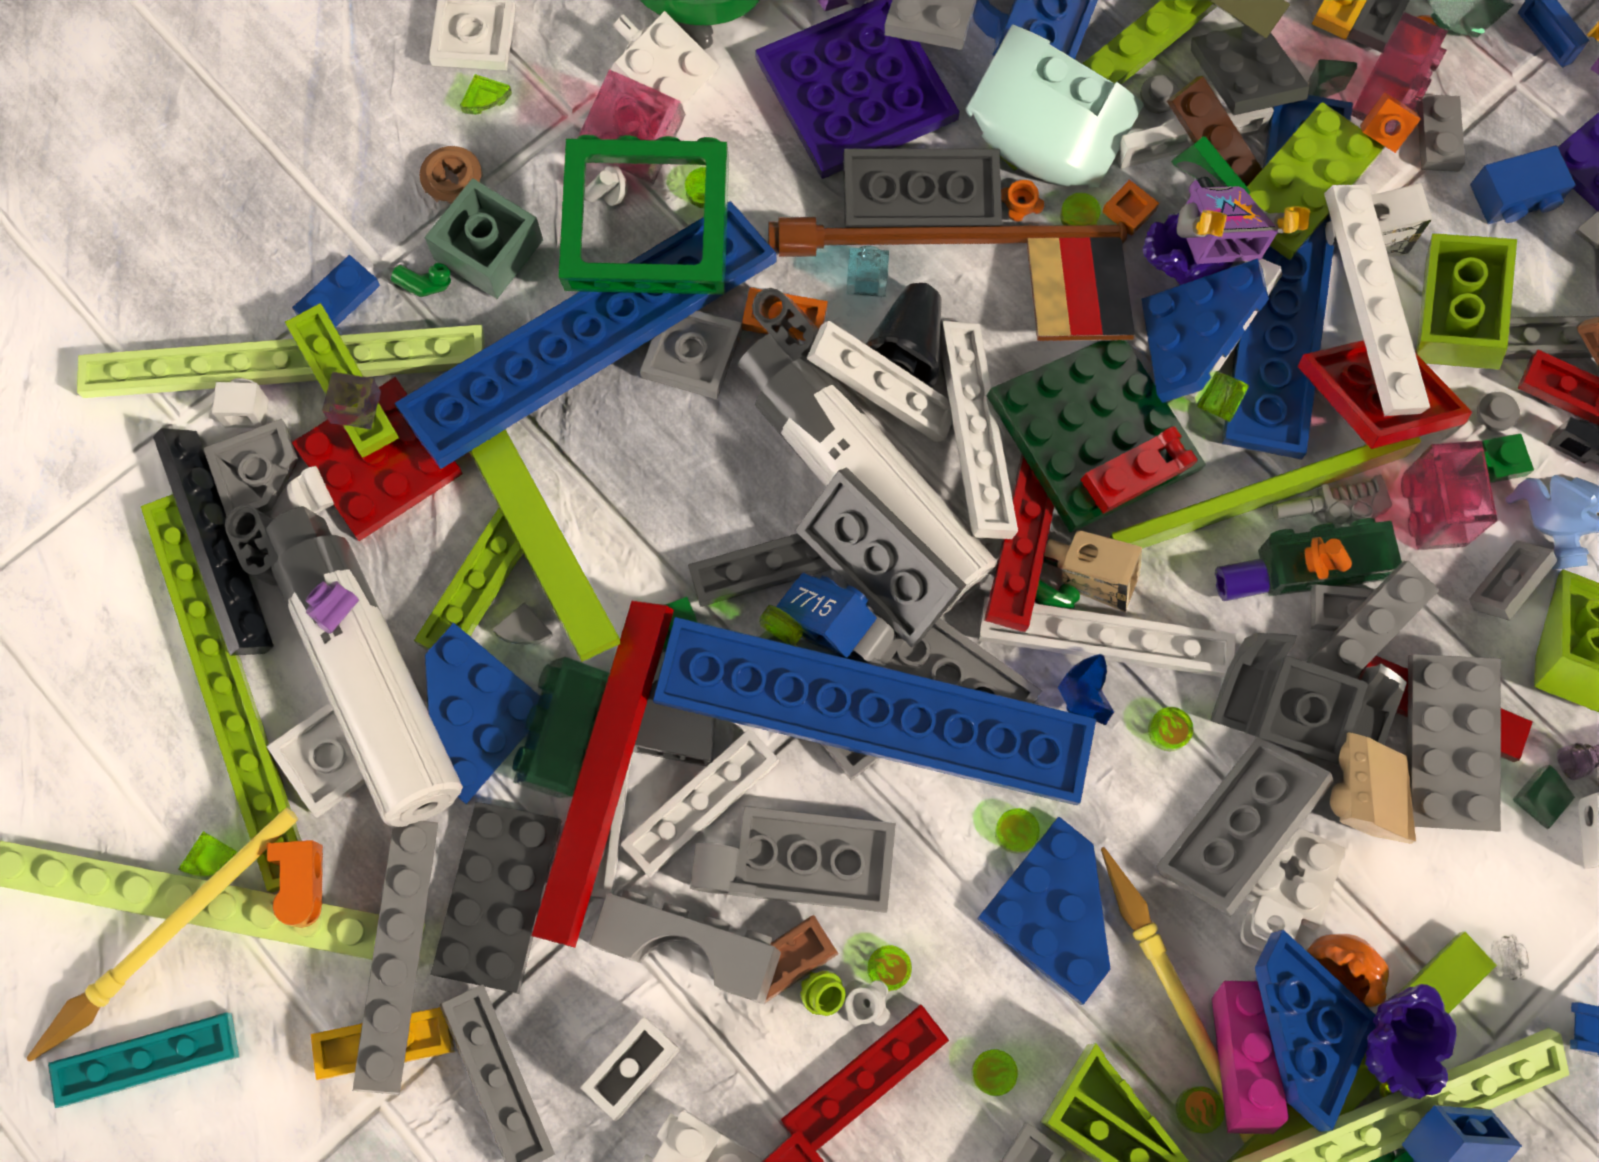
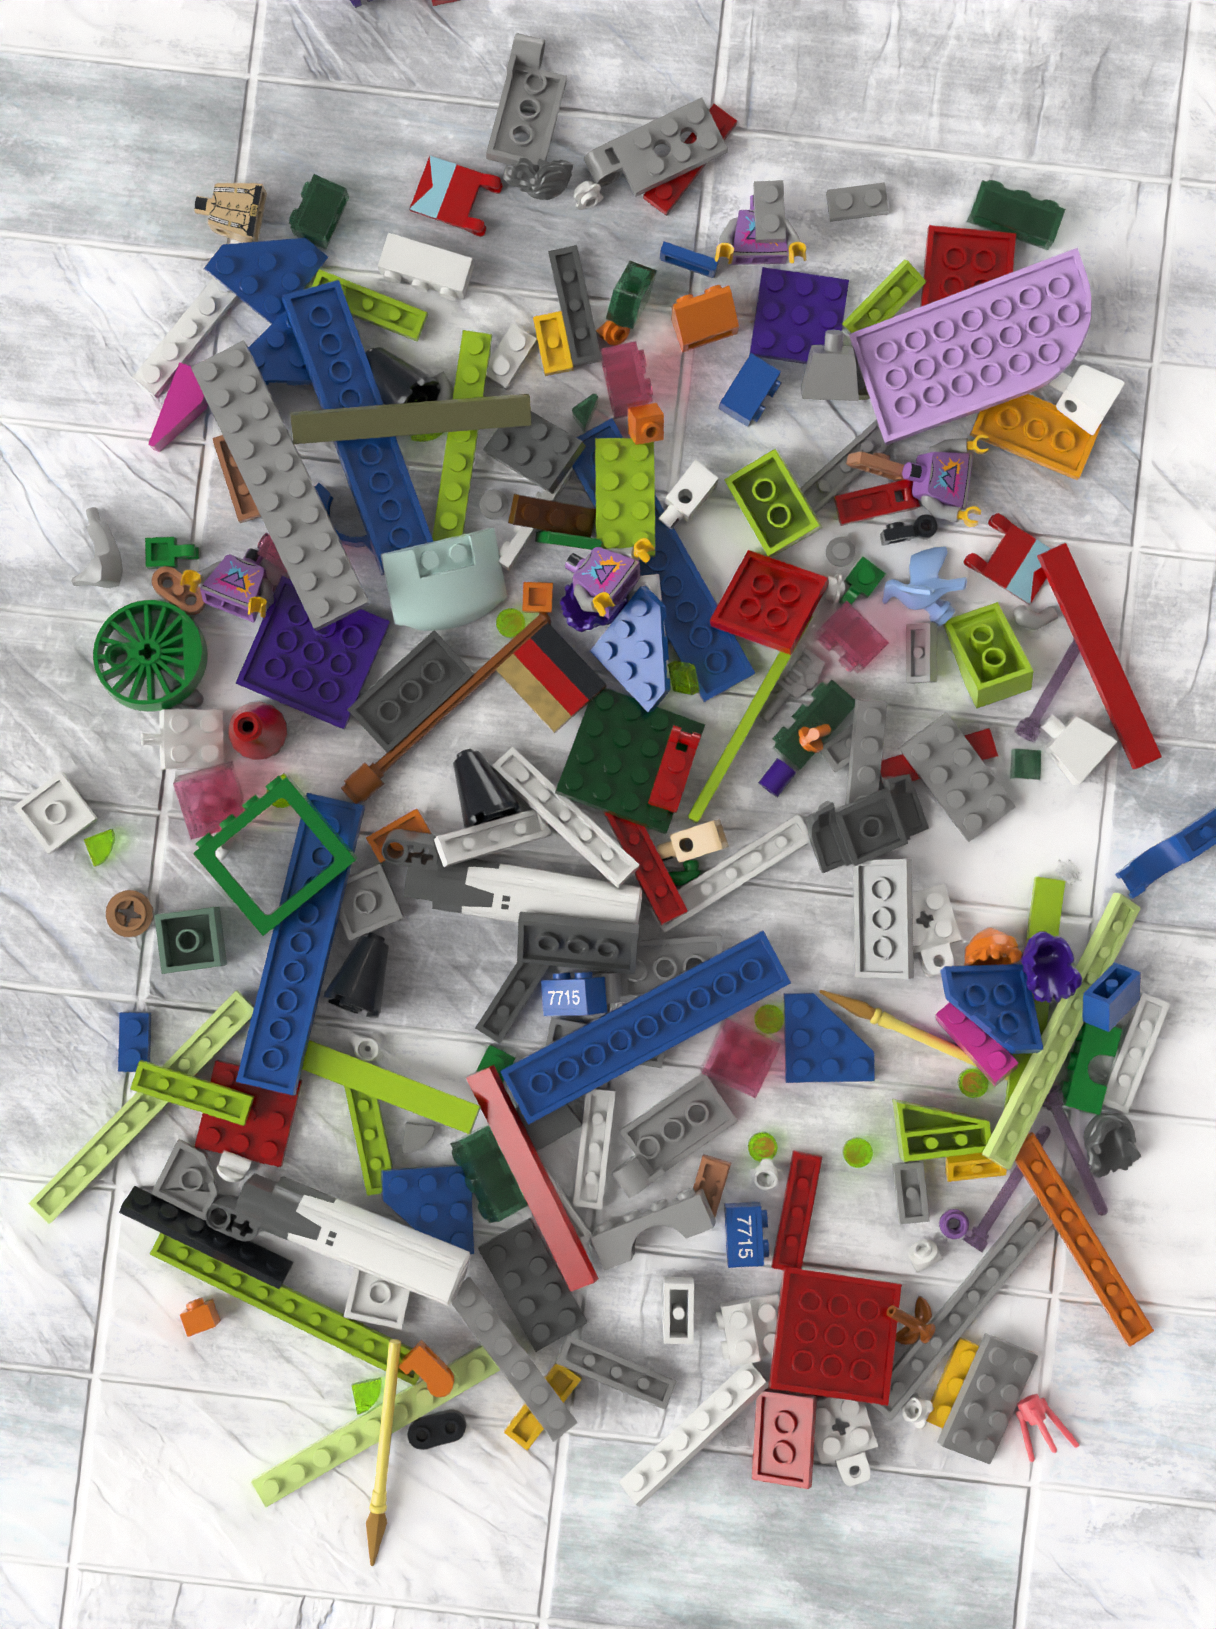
camera: 40 degrees left, 15 degrees up
(124, 614) = (199, 1316): none -> orange plate
(143, 1060) = (430, 1515): teal tile -> none
(240, 404) = (145, 1150): white plate -> none
(242, 965) = (435, 1428): none -> black plate
(330, 605) = (317, 1226): medium lavender plate -> none
(344, 392) = (210, 1112): plate -> none
(422, 285) = (177, 992): green arm -> none
(557, 484) = (371, 1041): none -> white plate
(616, 414) = (361, 978): none -> black cone
(735, 102) = (268, 731): none -> red cone
(781, 625) = (555, 1022): clear neon green tile -> none
(783, 1050) = (745, 1234): none -> blue brick
(822, 993) = (740, 1190): lime plate -> none
(867, 271) = (422, 768): clear light blue plate -> none
(952, 837) = (740, 1057): none -> clear pink brick
(1022, 190) = (466, 637): orange plate -> none
(1083, 689) = (745, 917): clear blue plate -> none
(1170, 729) = (804, 894): clear neon green tile -> none
(1374, 790) = (936, 842): tan slope -> none
(1376, 300) = (725, 558): white plate -> none
(1441, 133) = (676, 389): light grey plate -> none
(1531, 80) = (704, 317): none -> orange slope

